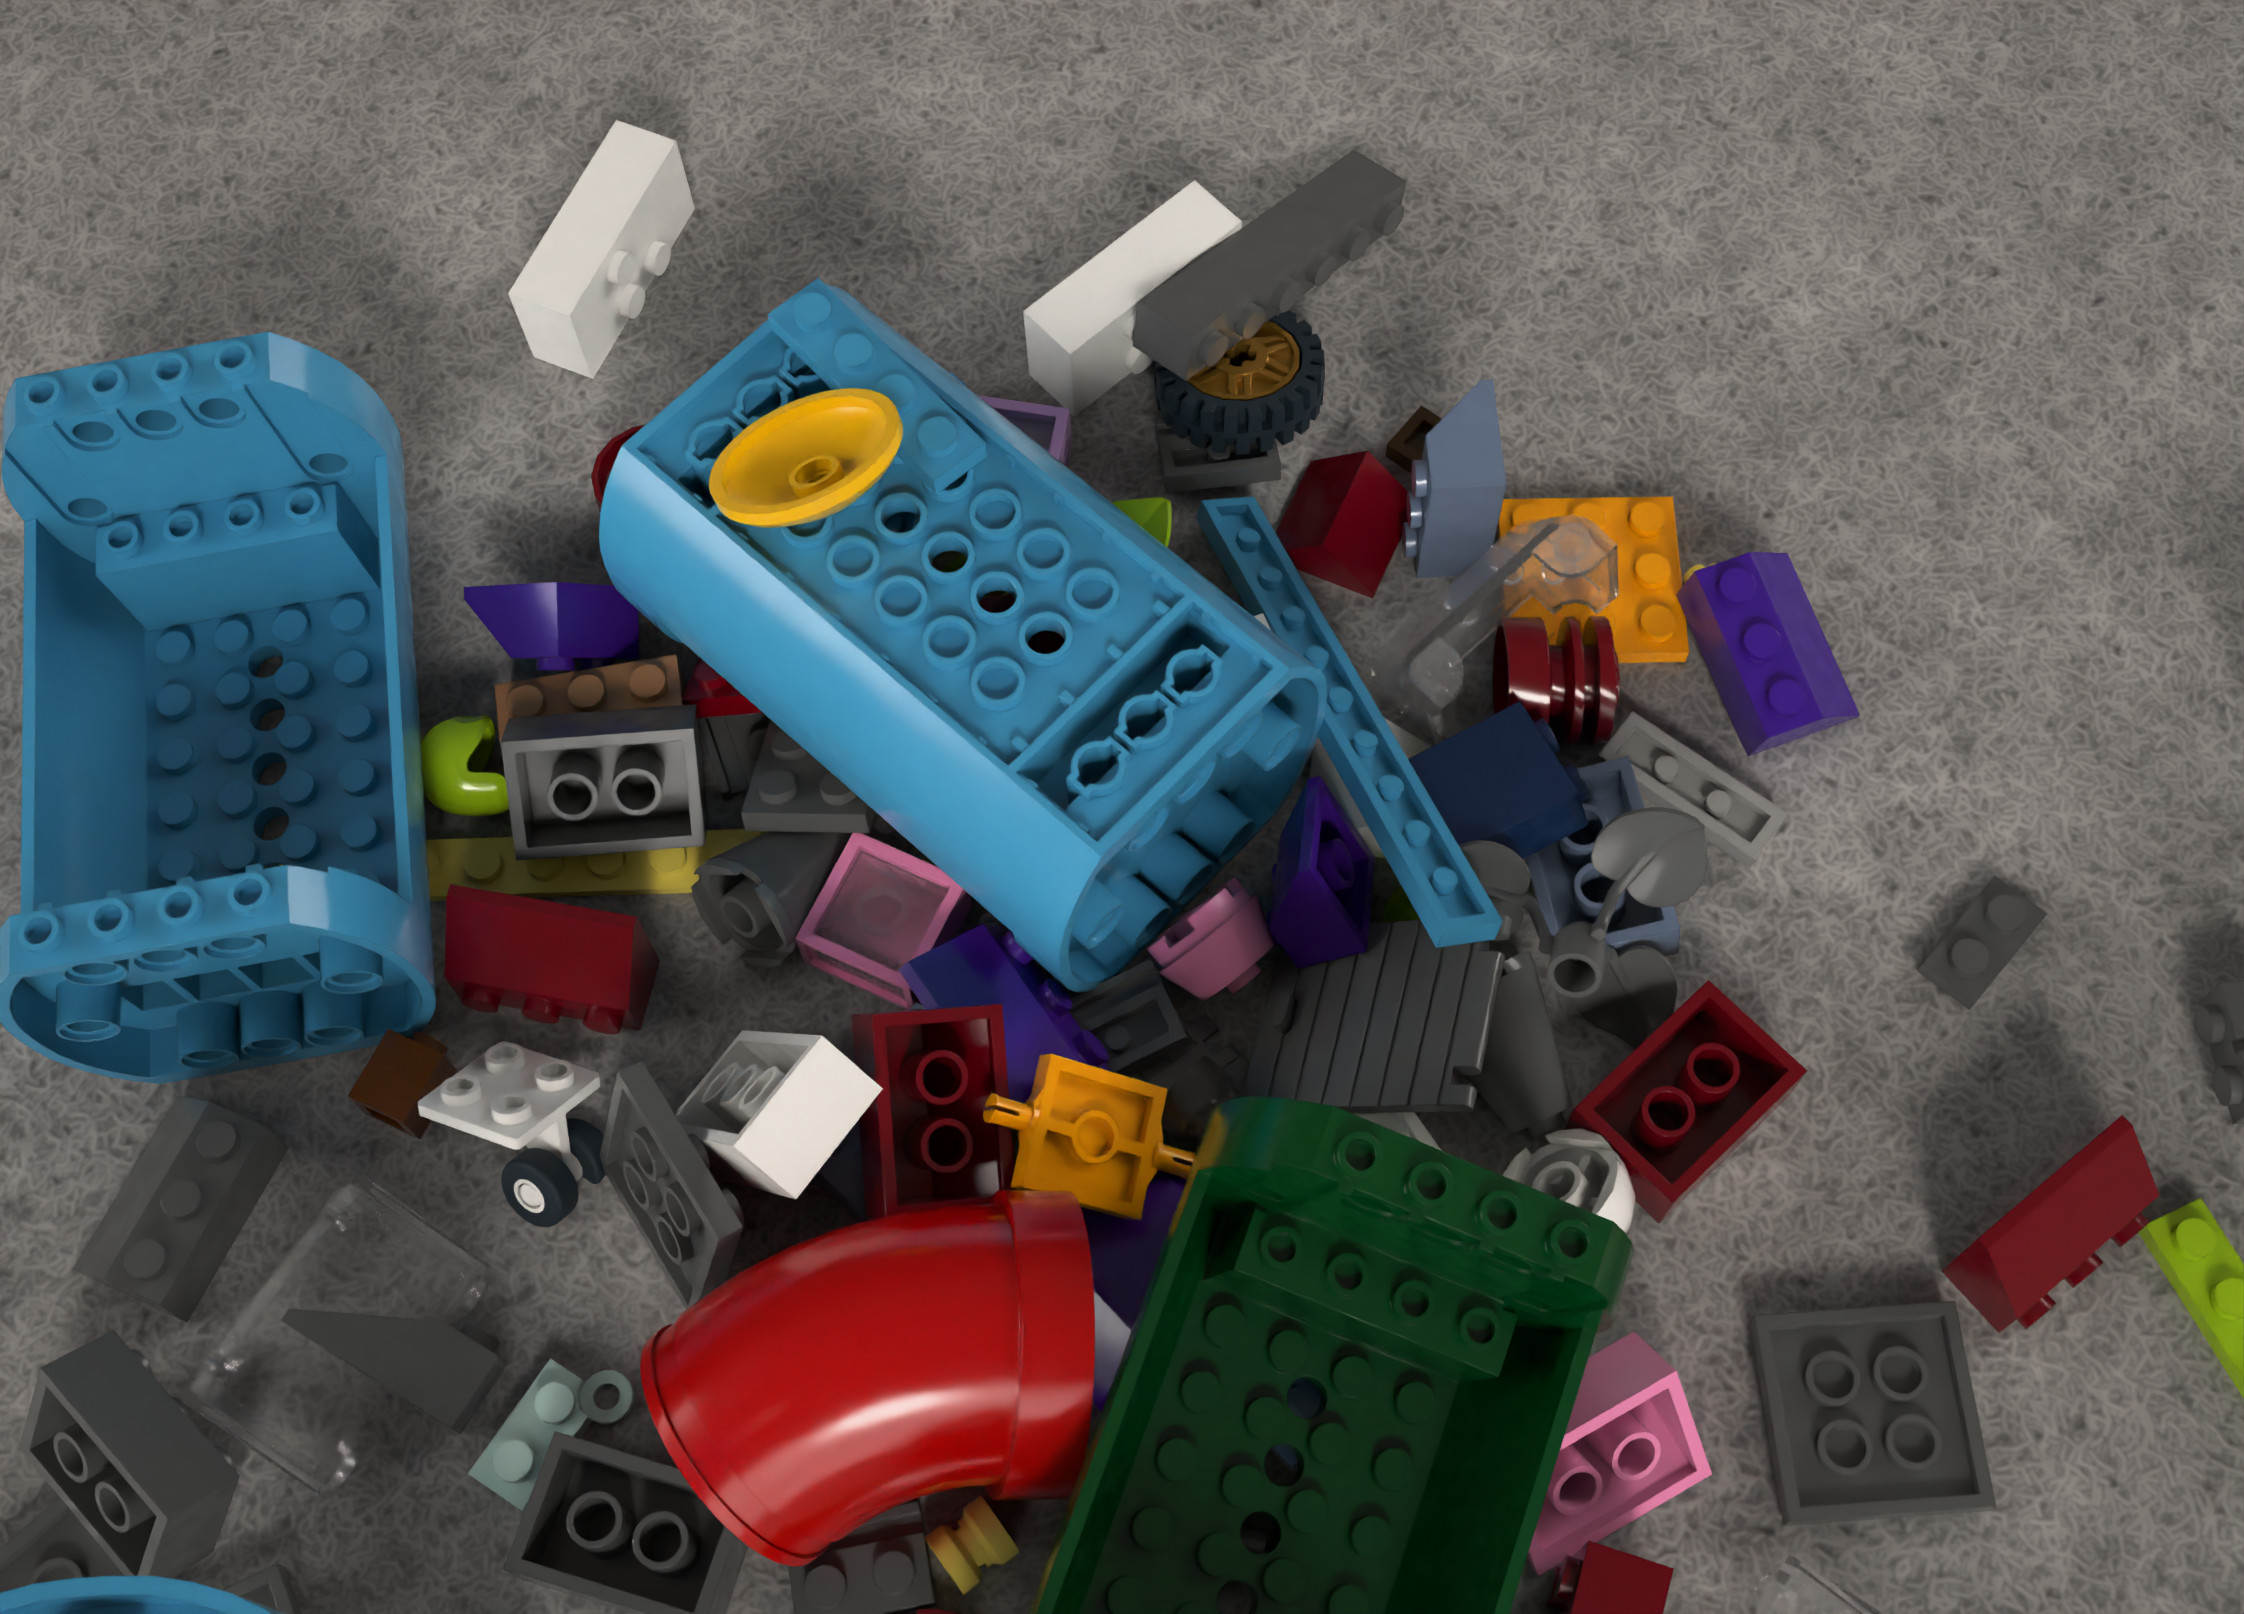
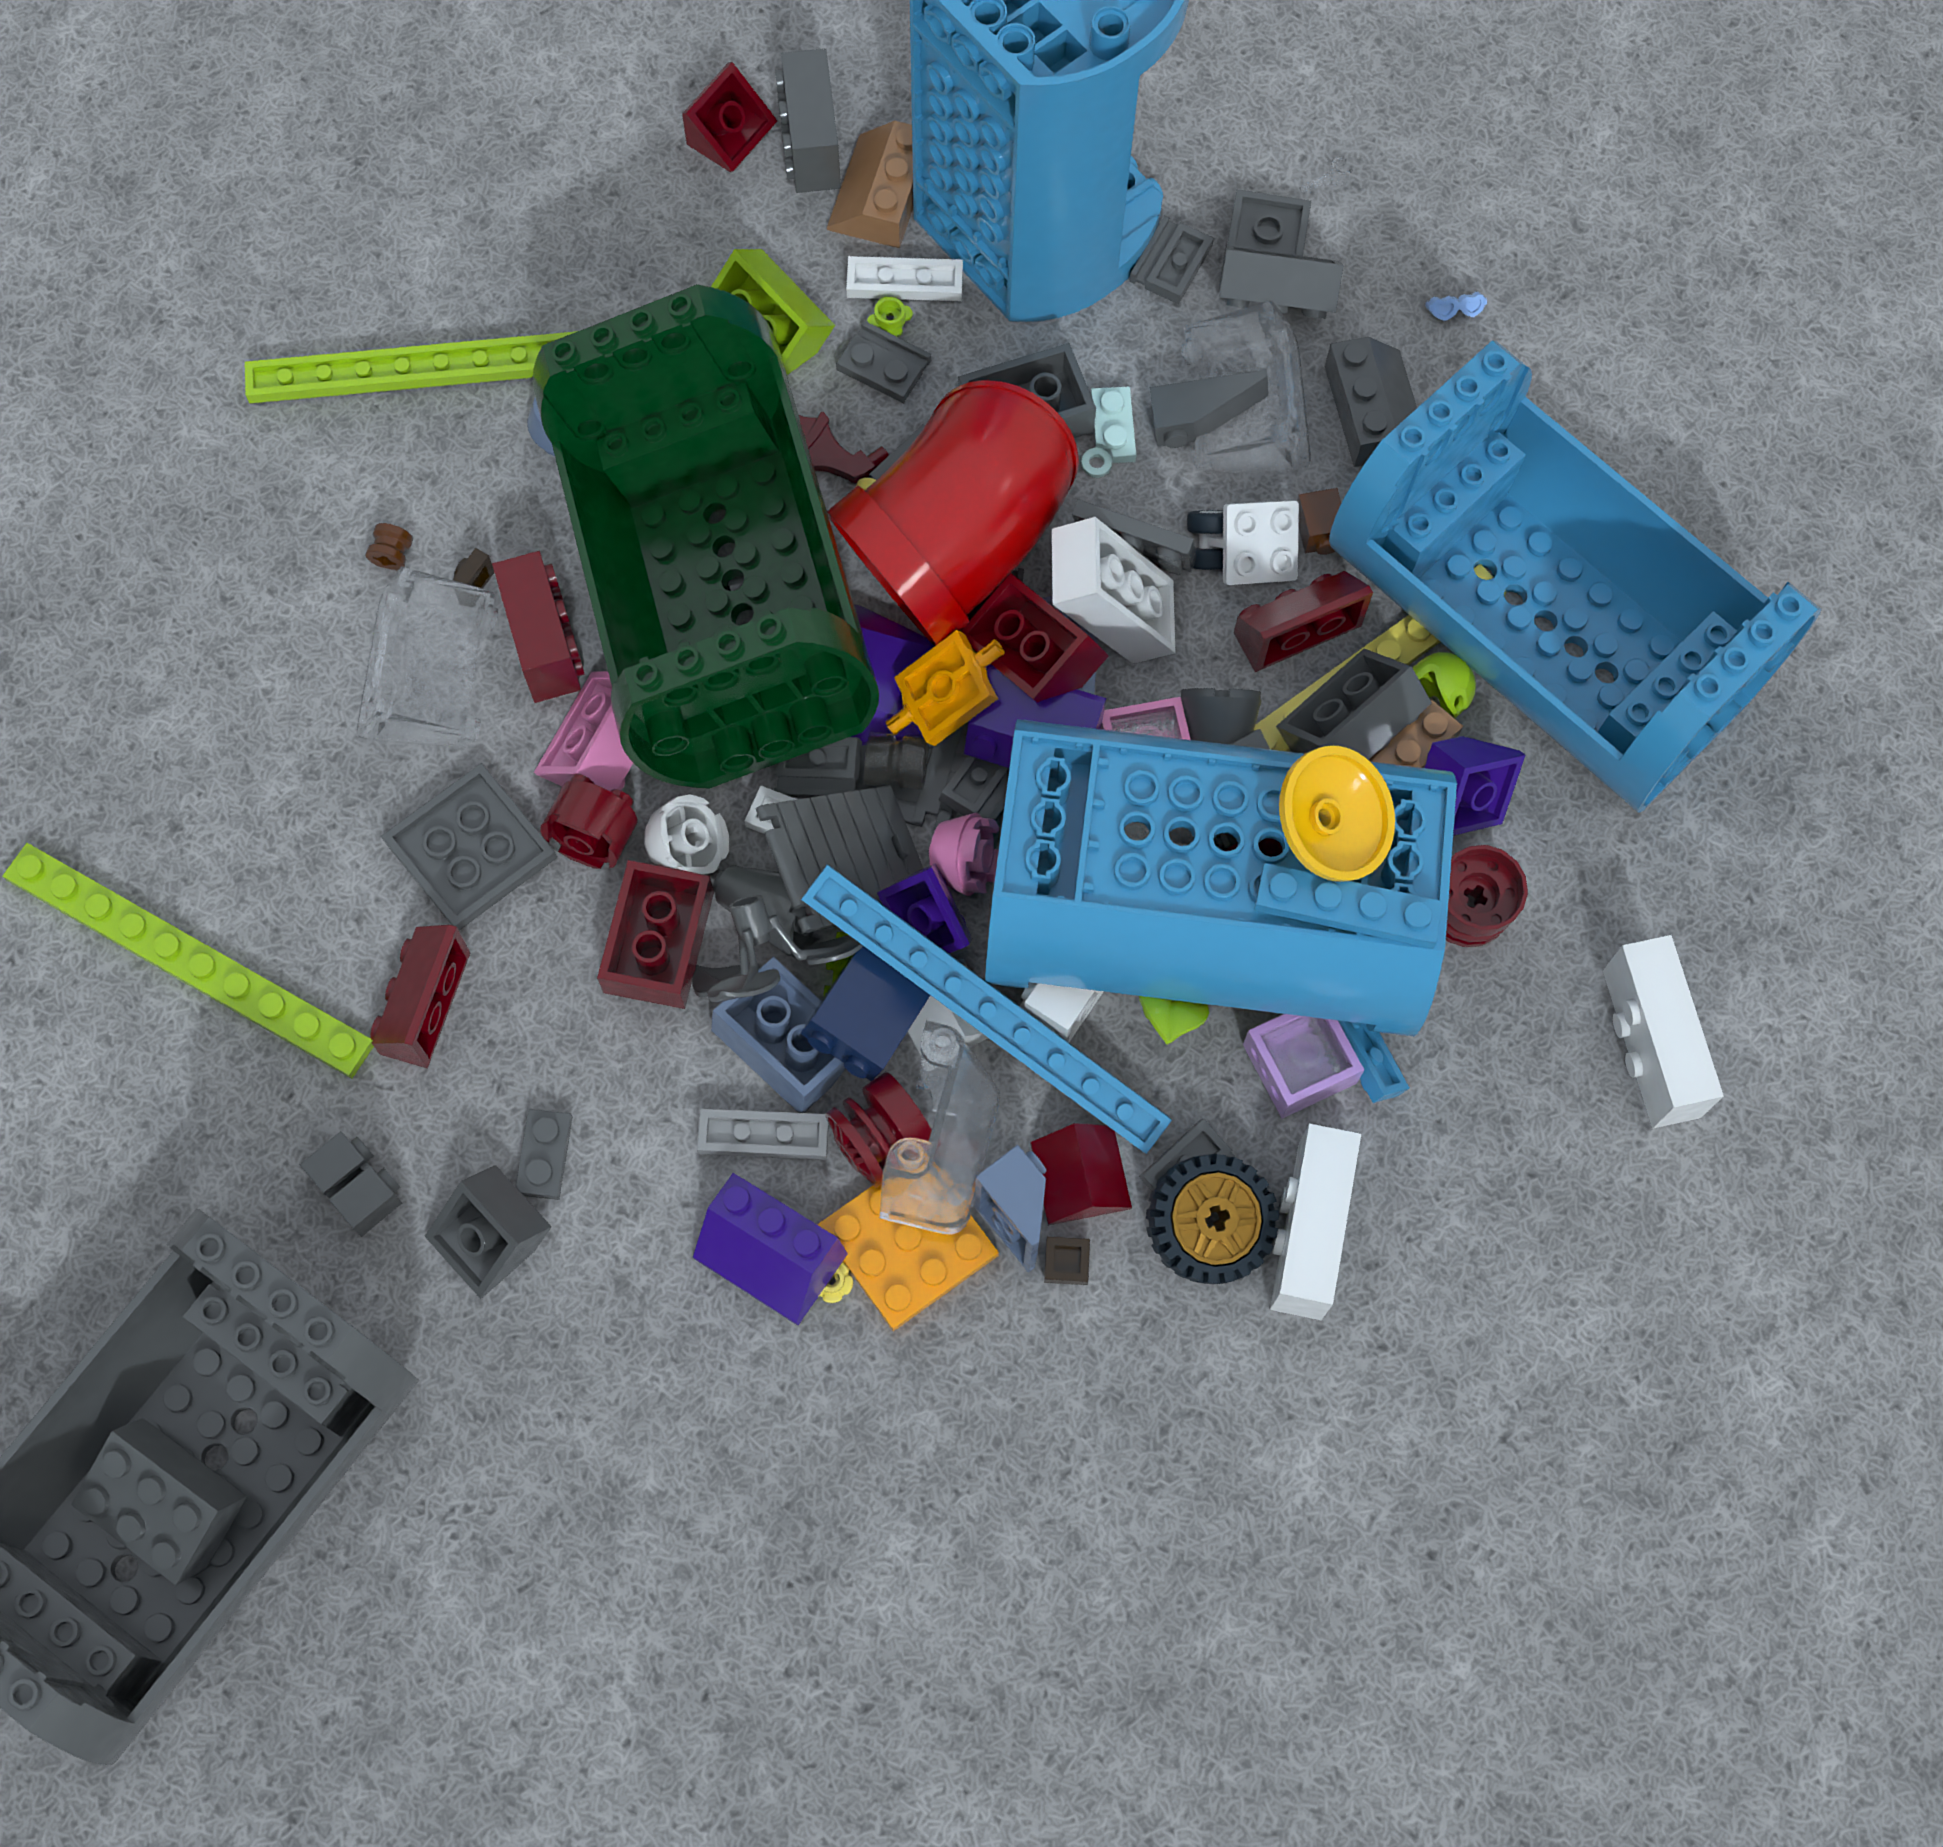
camera: 140 degrees right, 5 degrees up
(1268, 265) = (1245, 1302): dark grey brick -> none
(1688, 1310) = (590, 822): none -> dark red brick
(2104, 884) = (487, 1229): none -> dark grey slope

